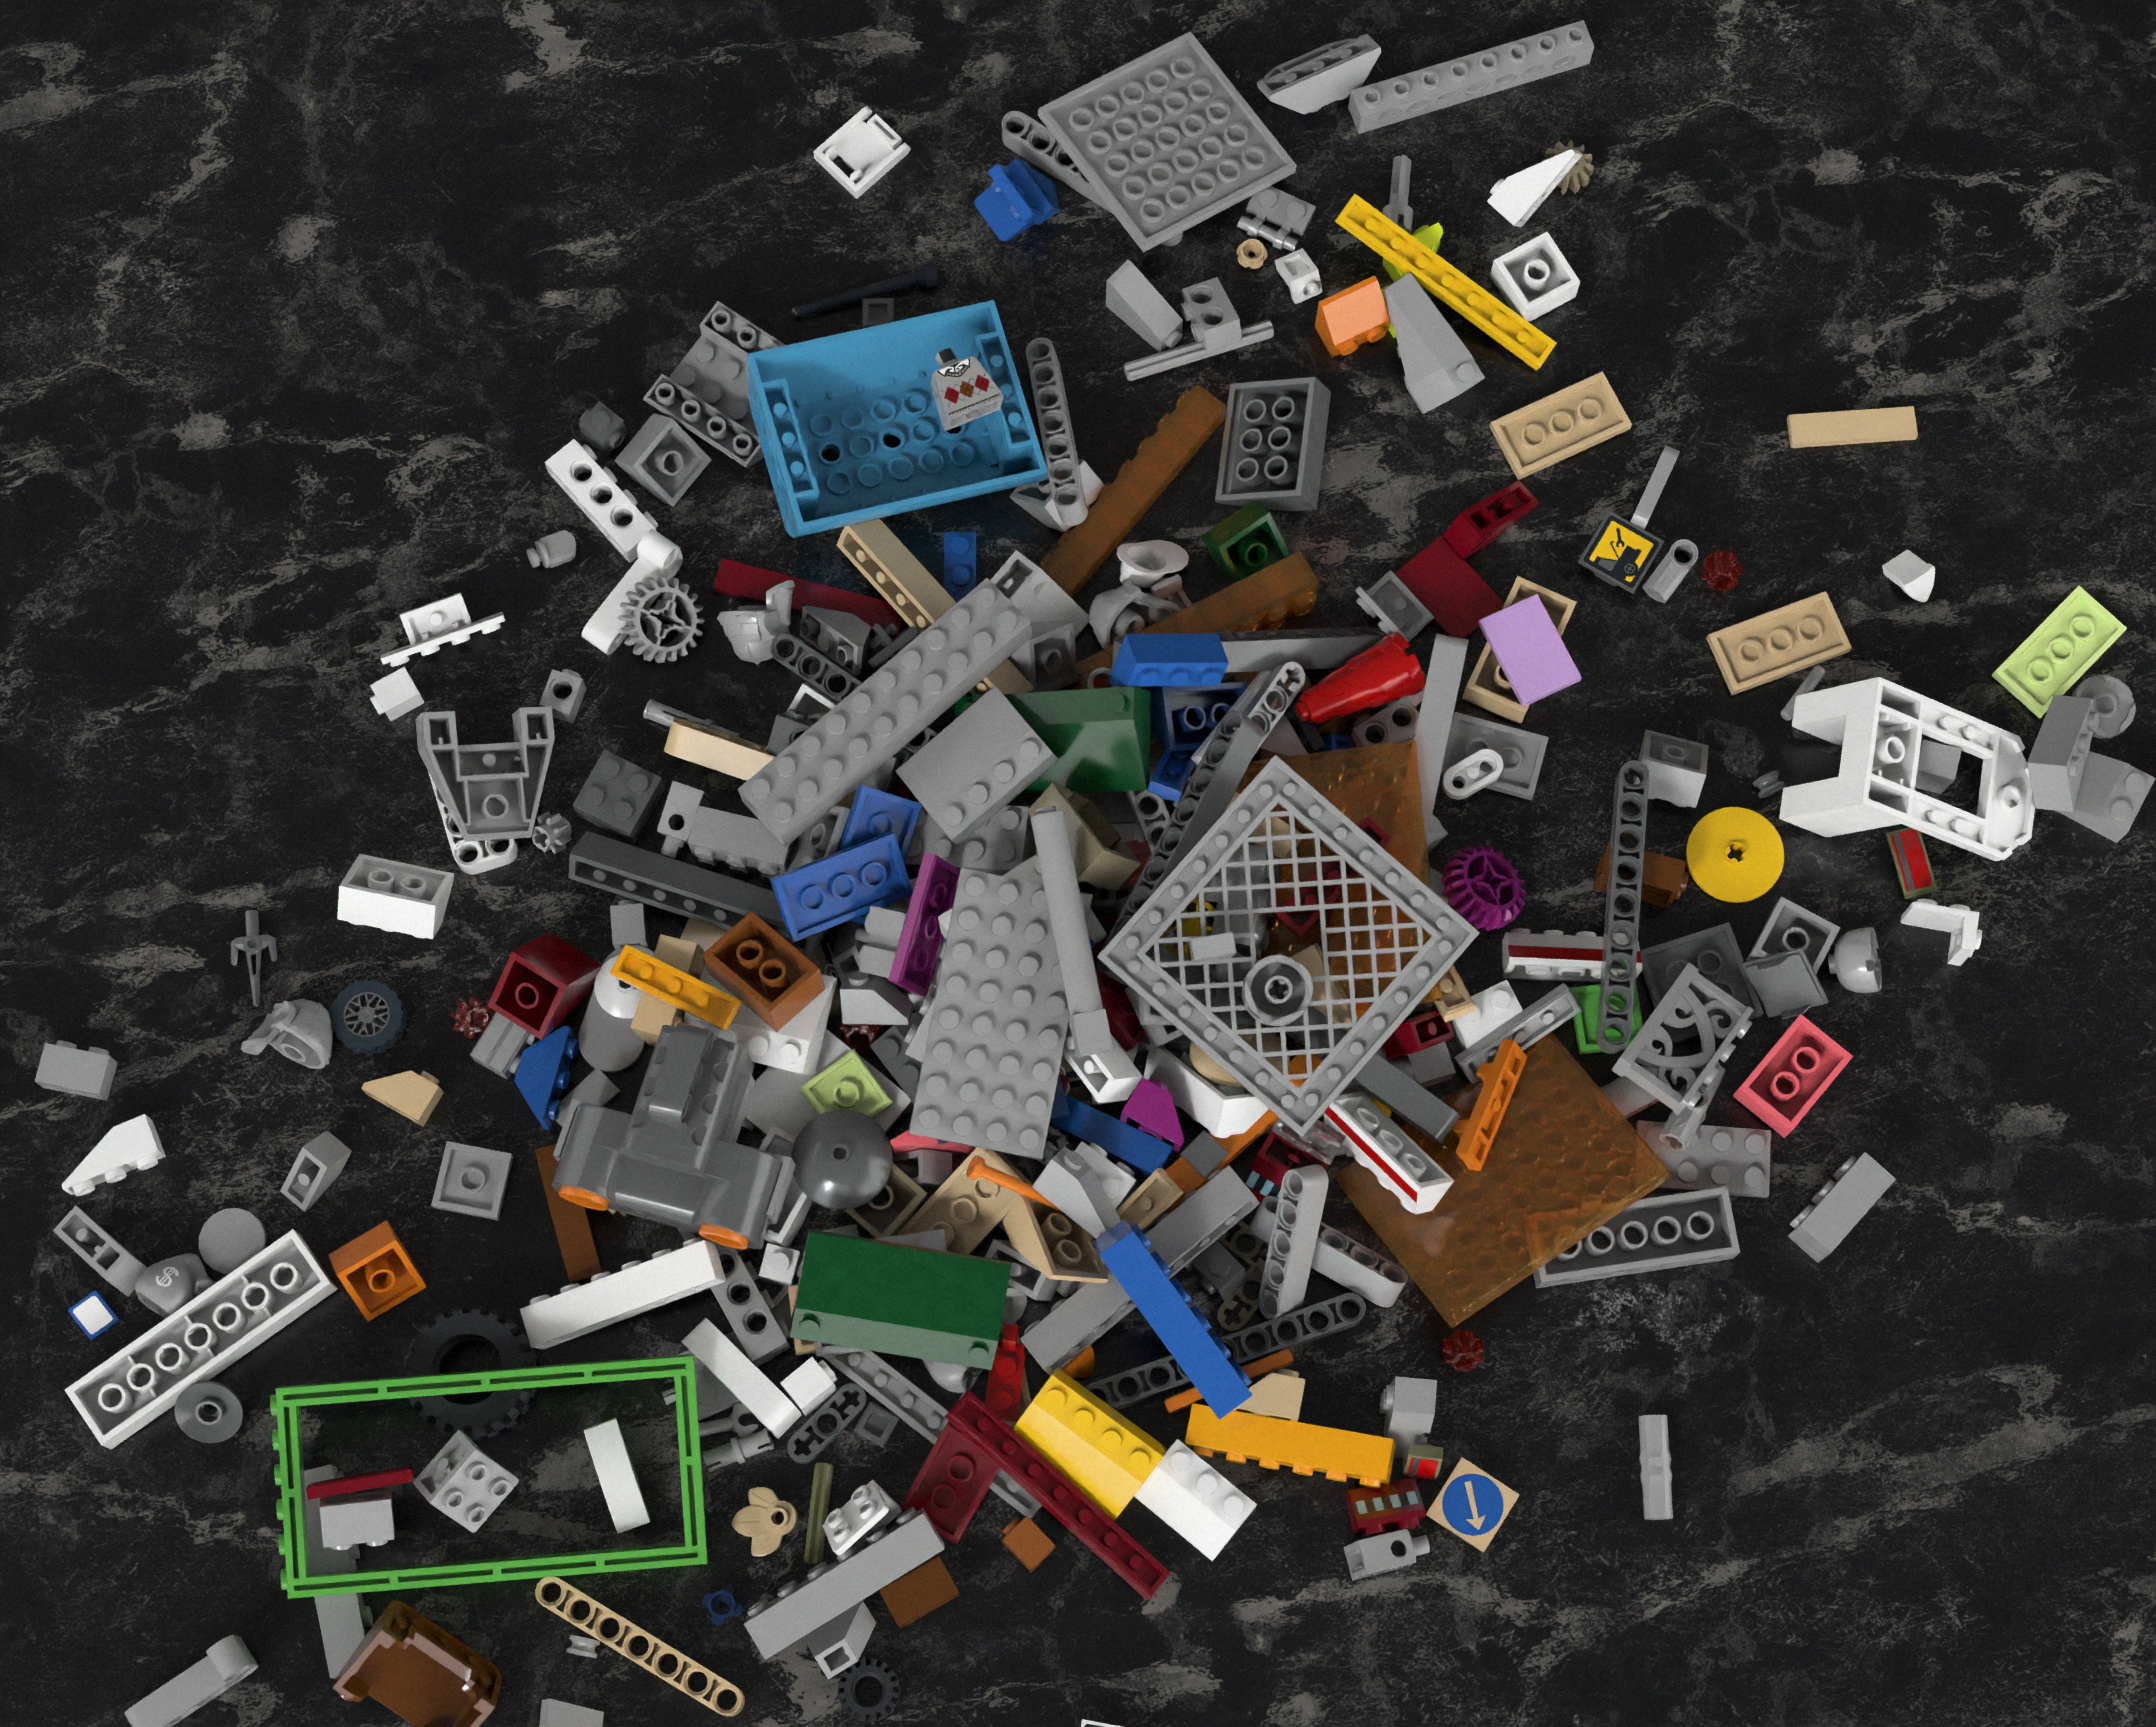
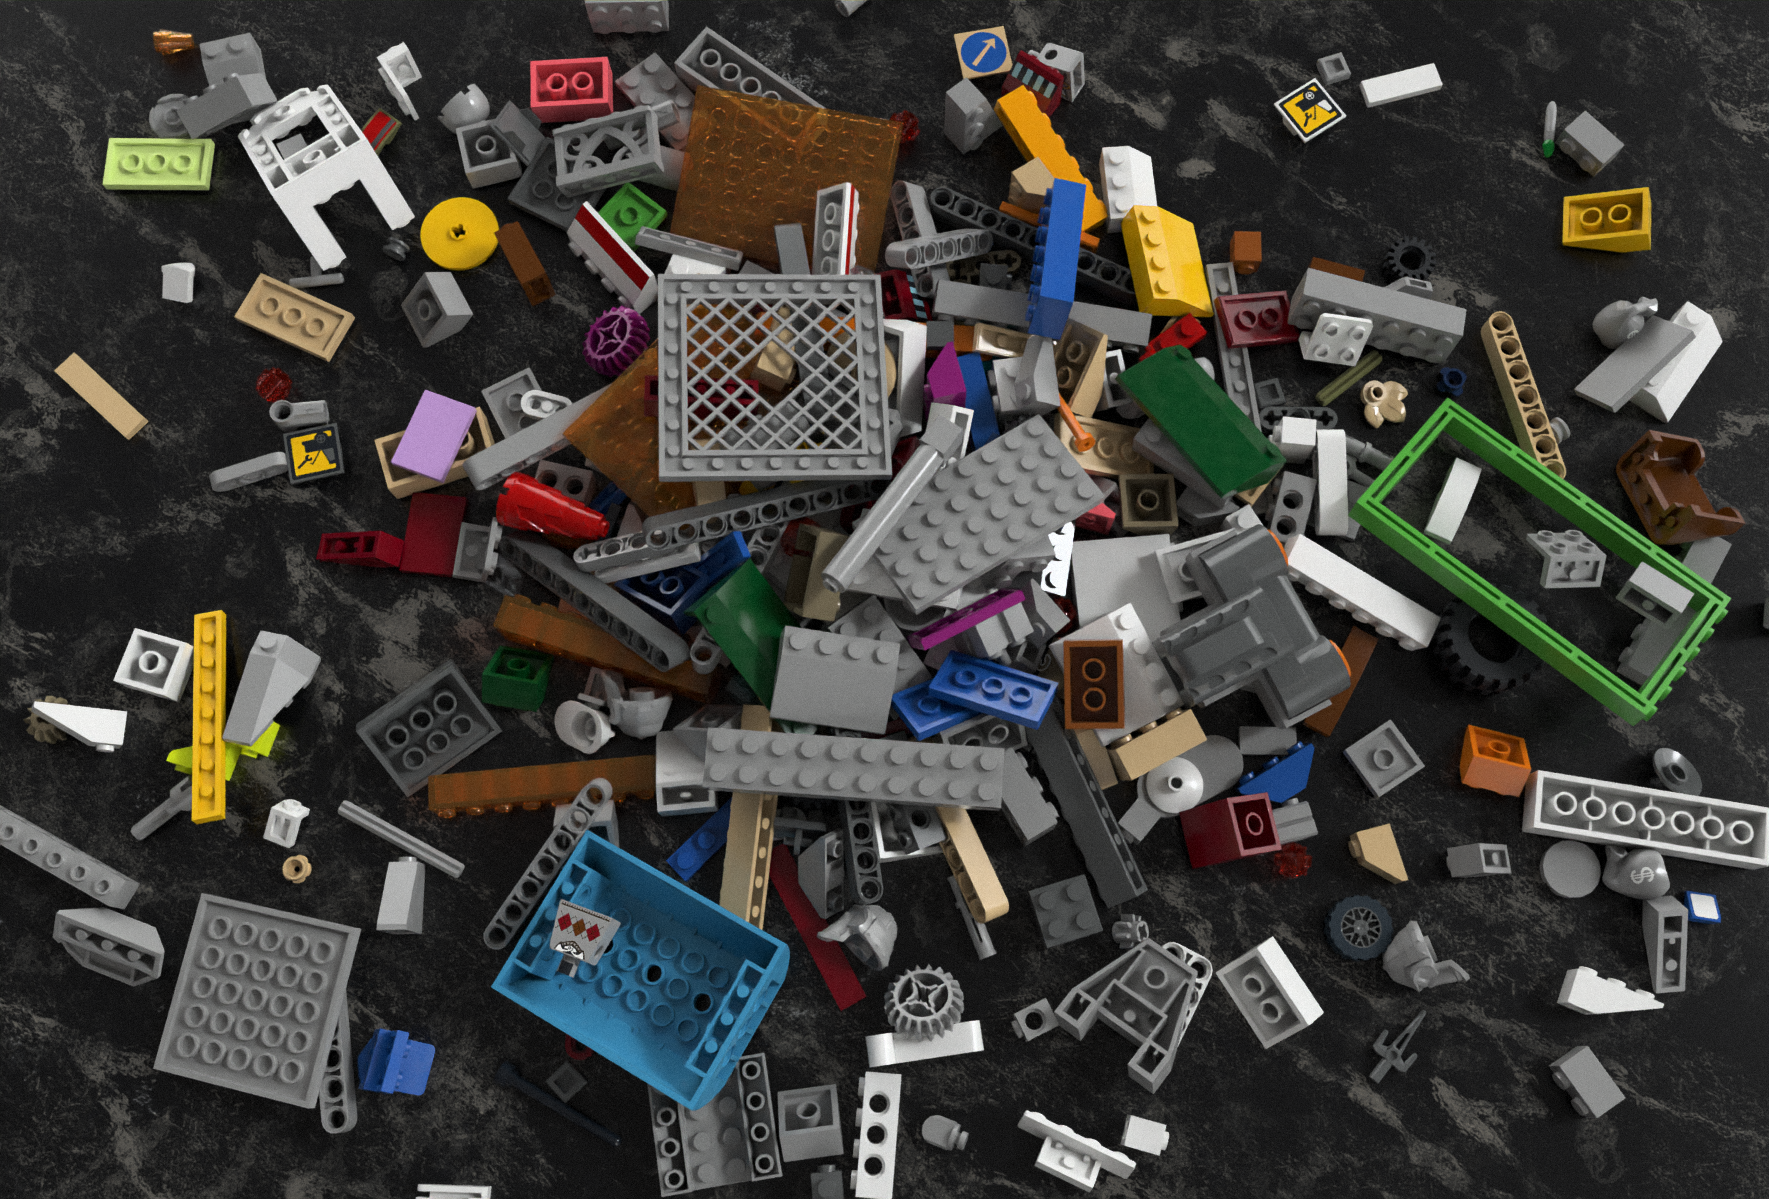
camera: 130 degrees left, 0 degrees up
(360, 1482) = (1636, 611): dark red tile -> none
(675, 987) = (1158, 730): light orange plate -> none
(680, 806) = (1038, 855): light grey torso -> none
(845, 1181) = (1139, 552): dark grey dish -> none
(847, 1086) = (1108, 579): yellowish green tile -> none
(1057, 1494) = (1207, 256): dark red tile -> none
(1169, 660) = (654, 610): blue slope -> none
(1211, 315) = (362, 844): light grey brick -> none
(1212, 947) = (821, 405): light grey piece -> none
(1280, 210) = (245, 878): light grey plate -> none
(1286, 973) = (811, 346): light grey brick -> none
(1352, 317) = (289, 753): orange slope -> none
(1422, 1461) = (989, 86): slope -> none
(1499, 1083) = (727, 228): orange hinge -> none
(1560, 425) = (254, 564): tan plate -> none
(1619, 921) = (552, 248): dark grey beam -> none

